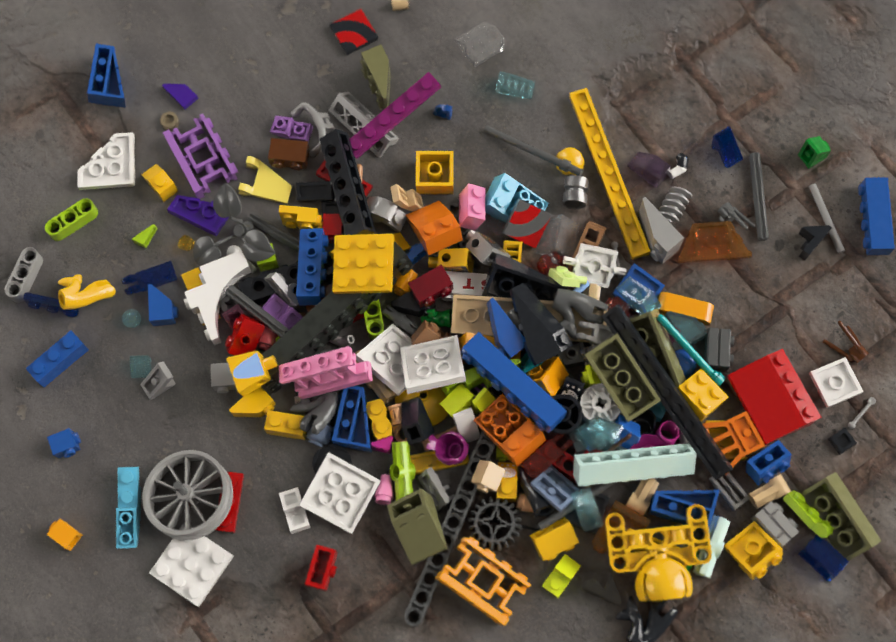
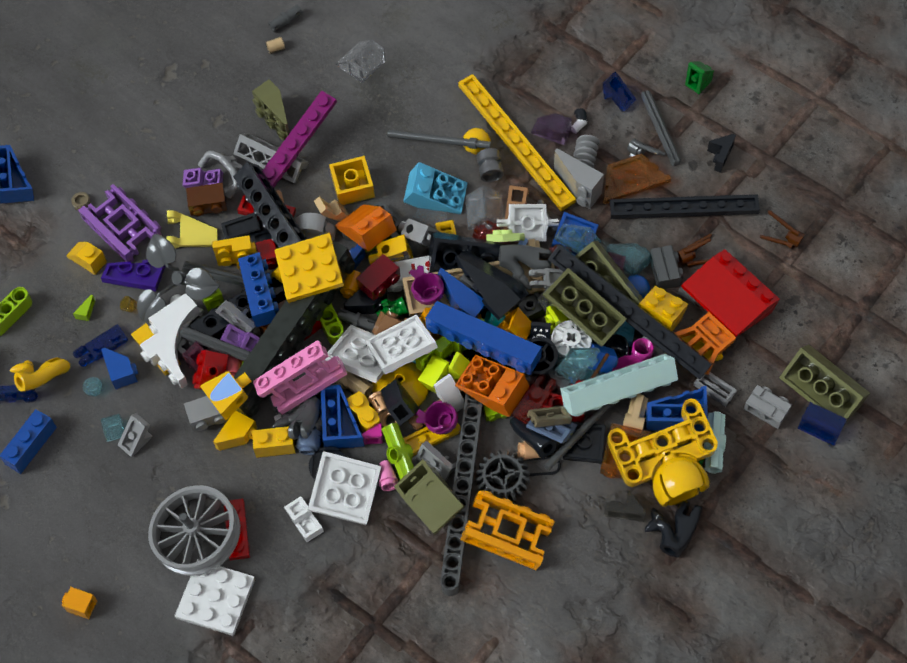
camera: 15 degrees left, 10 degrees down
(64, 443) = (56, 517): blue brick -> none
(111, 165) = (33, 254): white plate -> none
(128, 508) = (137, 559): medium azure slope -> none
(181, 94) = (86, 174): dark purple tile -> none
(321, 568) = (346, 562): red brick -> none
(354, 31) = (238, 80): tile -> none
(443, 111) = (344, 127): blue tile -> none
(472, 207) = (396, 200): bright pink brick -> none
(473, 312) = (426, 287): none -> magenta hat
(487, 476) = (483, 432): tan brick -> none
(508, 485) = (503, 436): yellow slope -> none
(510, 78) = (400, 95): clear light blue slope -> none
(526, 223) = (452, 202): tile -> none
(554, 539) = (564, 475): yellow brick -> none
(556, 482) = (549, 416): none -> dark tan tile
(561, 576) = (581, 508): neon yellow slope -> none
(587, 508) = (587, 438): clear light blue slope -> none
(686, 306) = (625, 236): light orange beam -> none
(715, 375) = (672, 289): teal piece -> none
(744, 340) = (687, 254): none -> reddish brown plant
(754, 551) = (756, 434): yellow plate -> none
(757, 289) = (684, 206): none -> black plate
(768, 463) = (744, 352): blue brick -> none
(774, 489) = (756, 375): tan piece -> none
(808, 514) = (796, 388): lime hinge -> none
(826, 217) = (728, 130): light grey bar -> none
(836, 382) = (783, 268): white plate -> none
(842, 441) = (805, 318): black tile -> none
(871, 401) = (821, 276): light grey hinge -> none
(876, 216) = (773, 116): blue brick -> none

